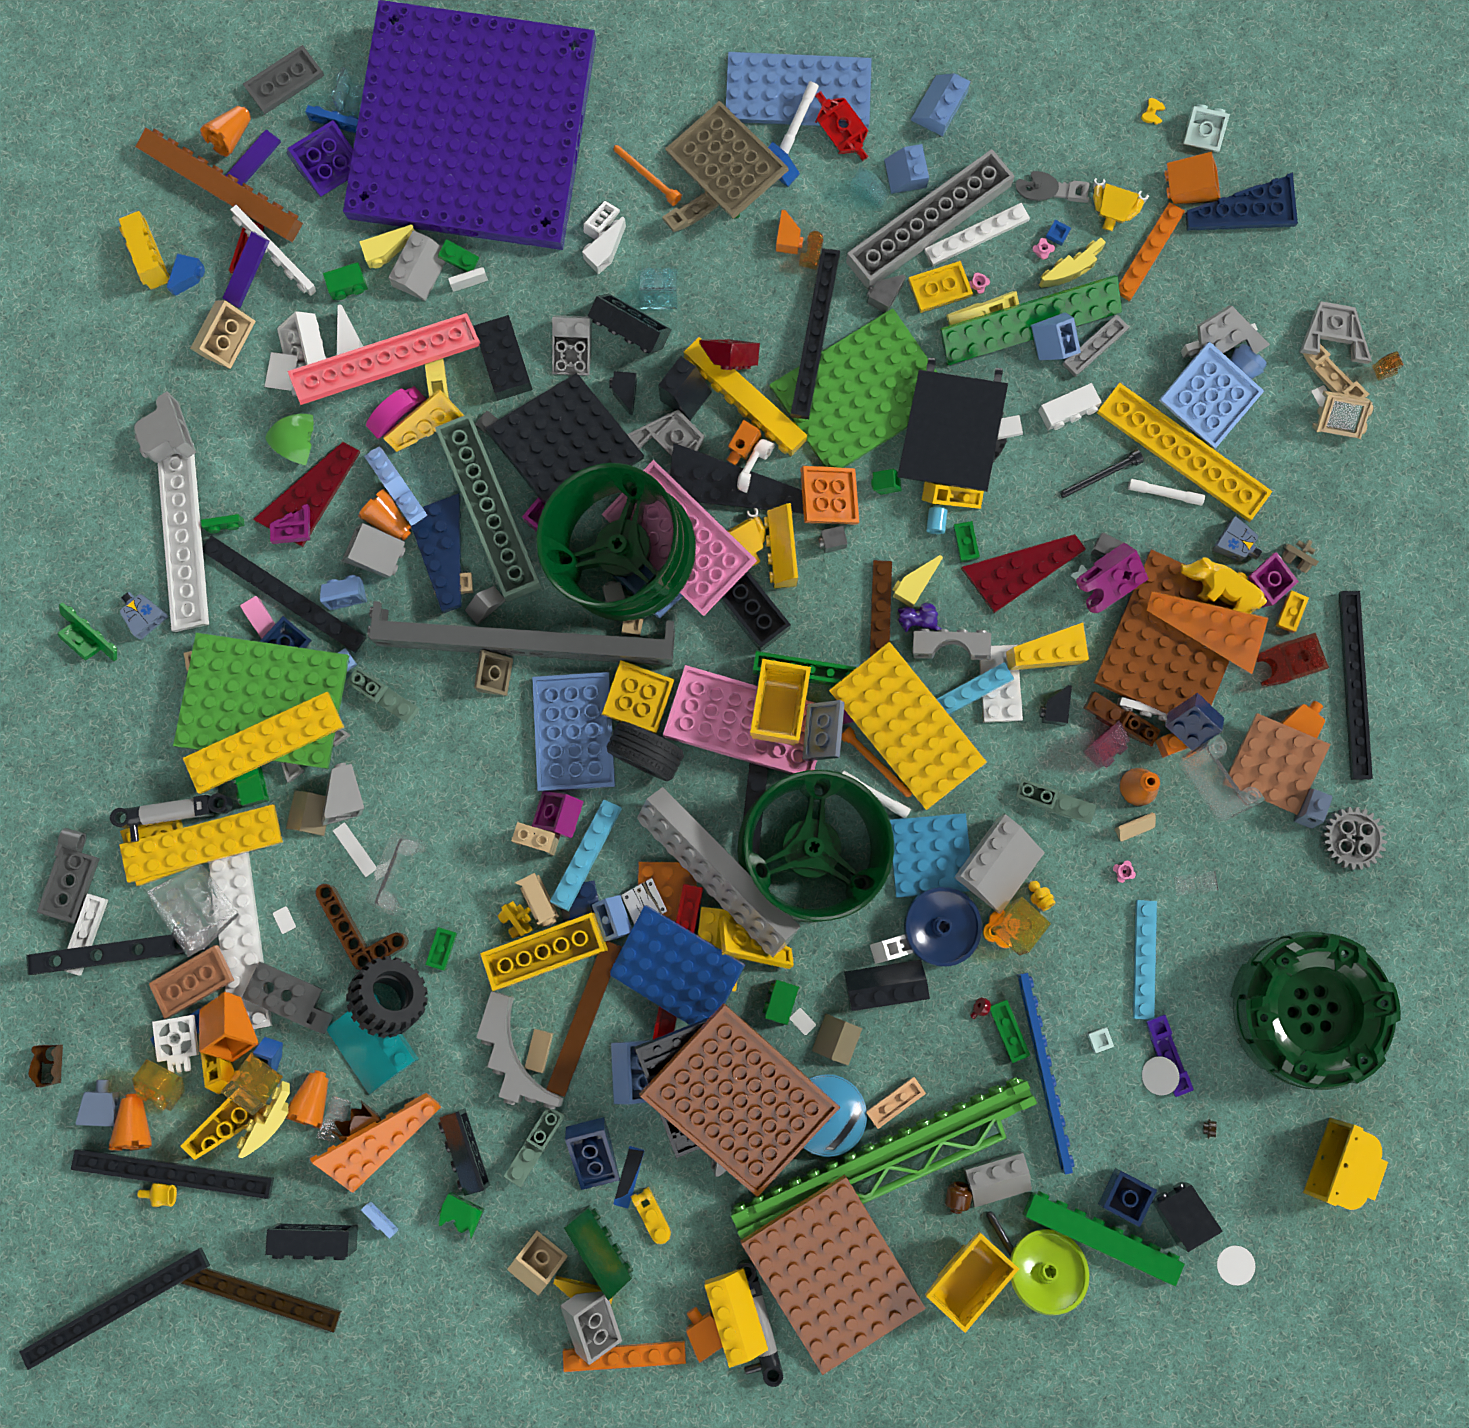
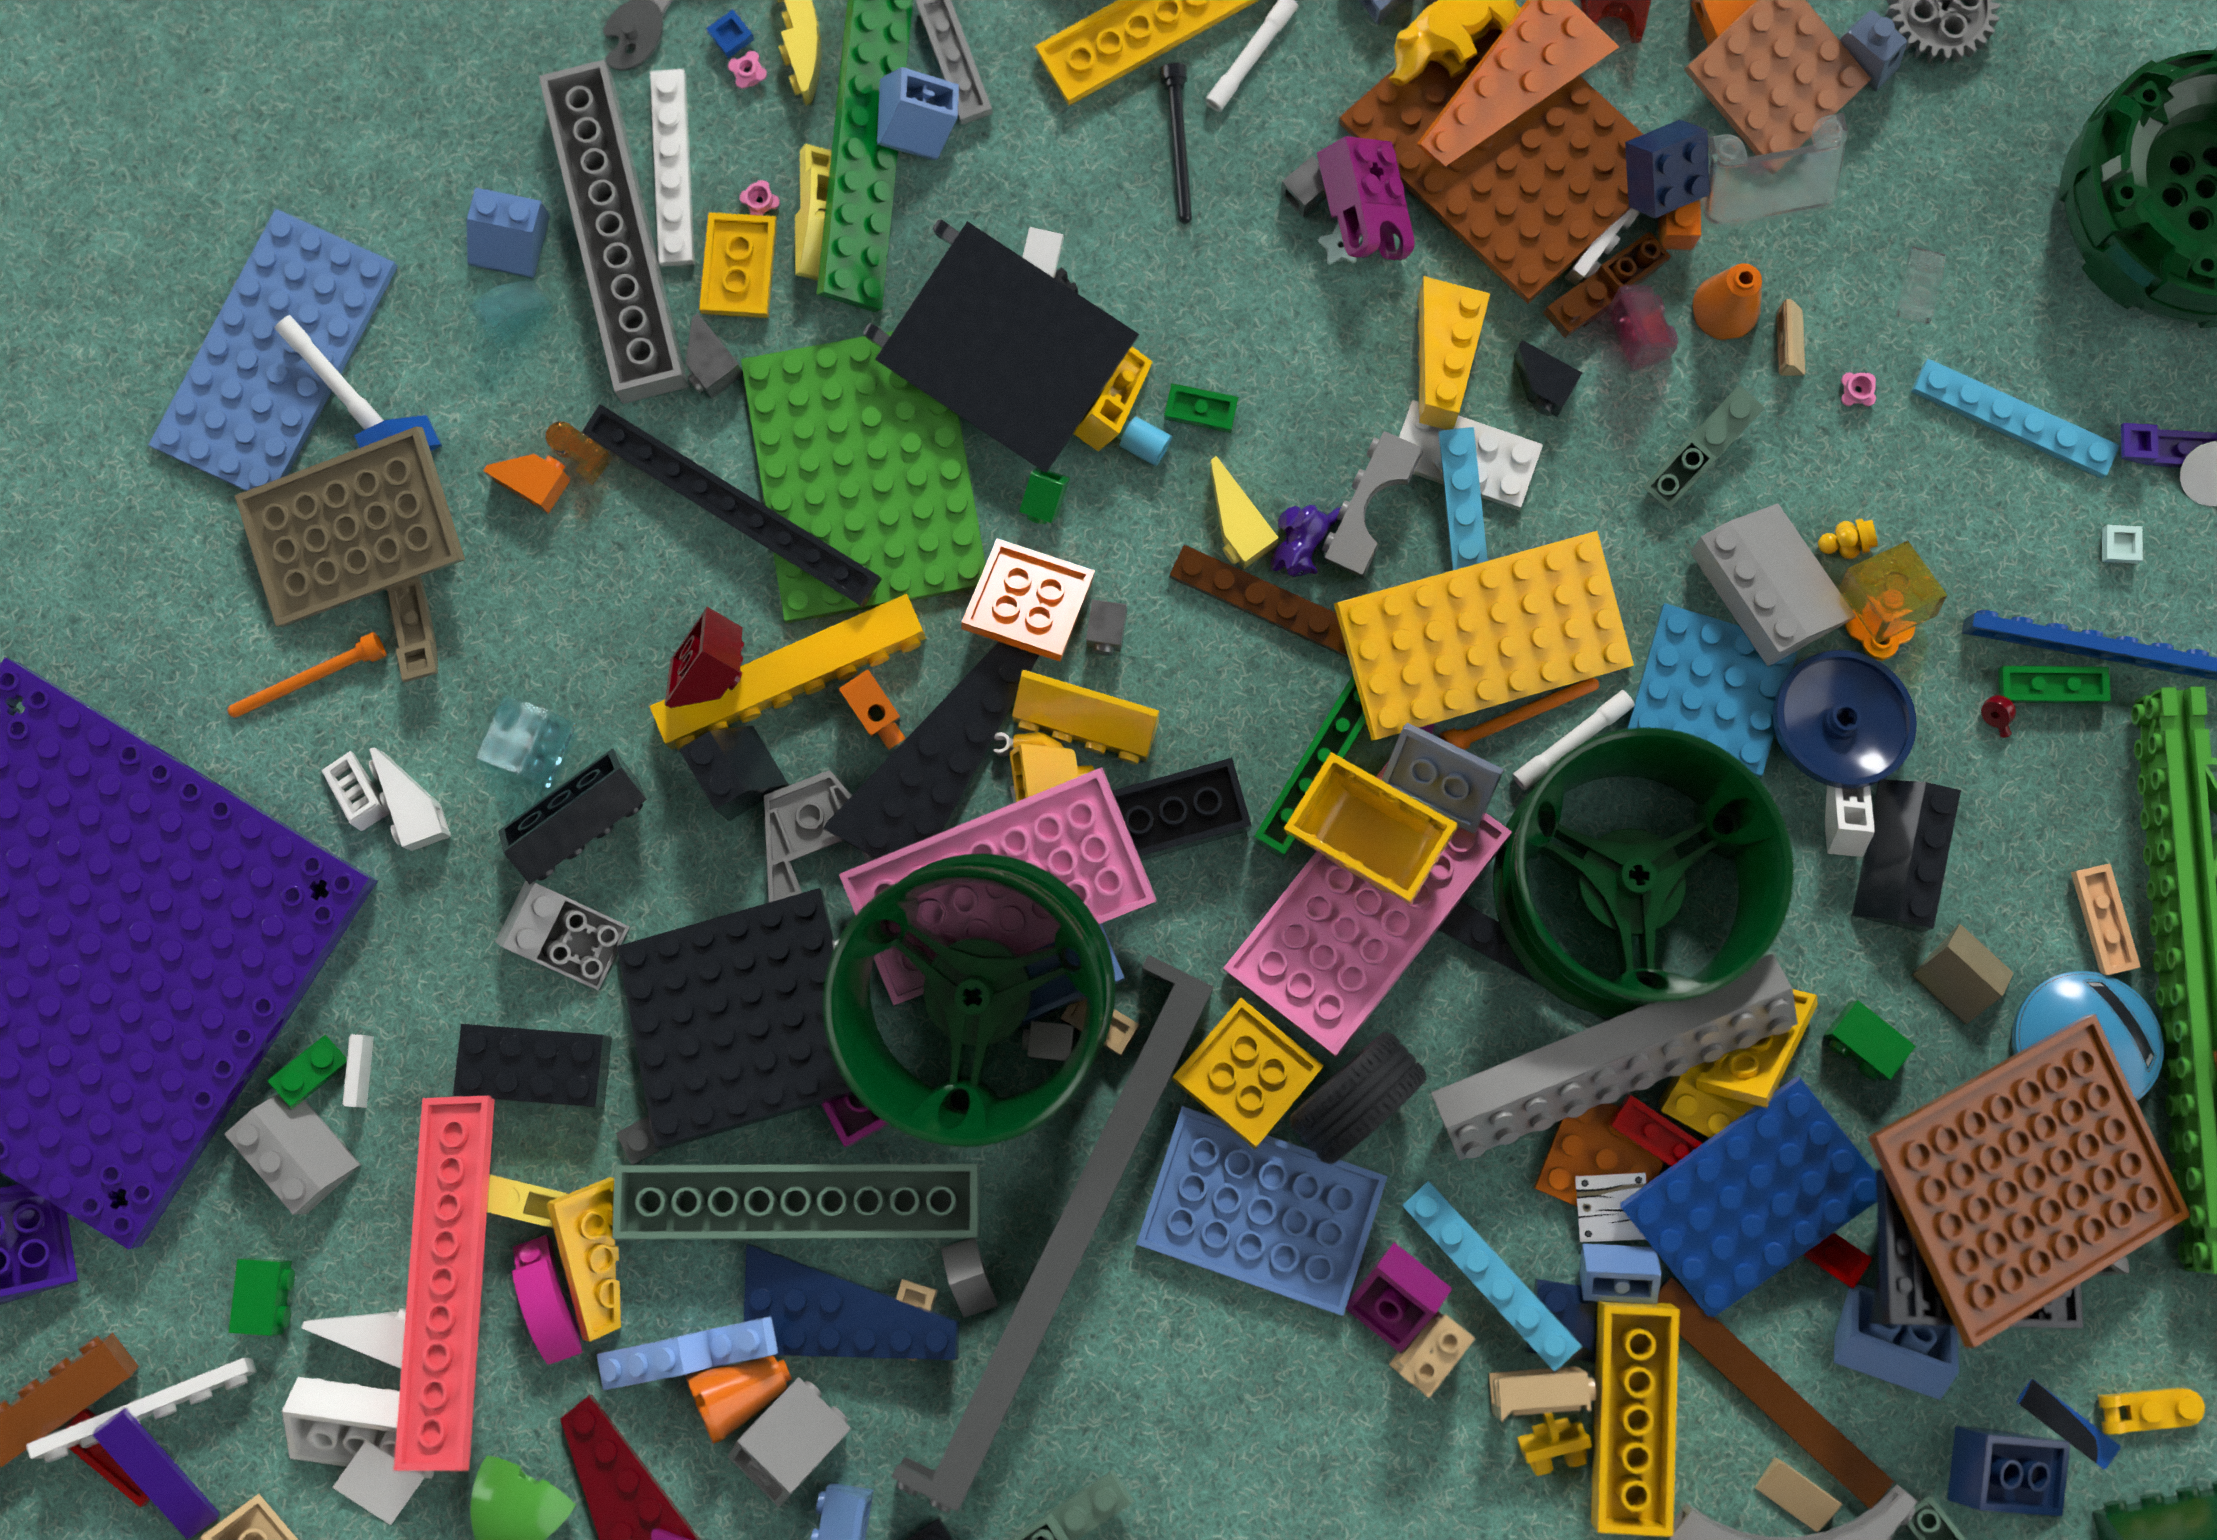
camera: 60 degrees left, 0 degrees up
(384, 247) = (228, 1202): light yellow slope -> none
(493, 673) = (1102, 1310): dark tan slope -> none
(624, 389) = (684, 874): black slope -> none
(762, 450) = (897, 683): white piece -> none
(802, 1021) = (1911, 1018): white sticker -> none
(845, 139) = (405, 309): red plate -> none
(941, 102) = (411, 127): medium blue slope -> none
(1012, 574) = (1288, 357): dark red wing -> none
(1070, 407) = (1043, 143): white brick -> none

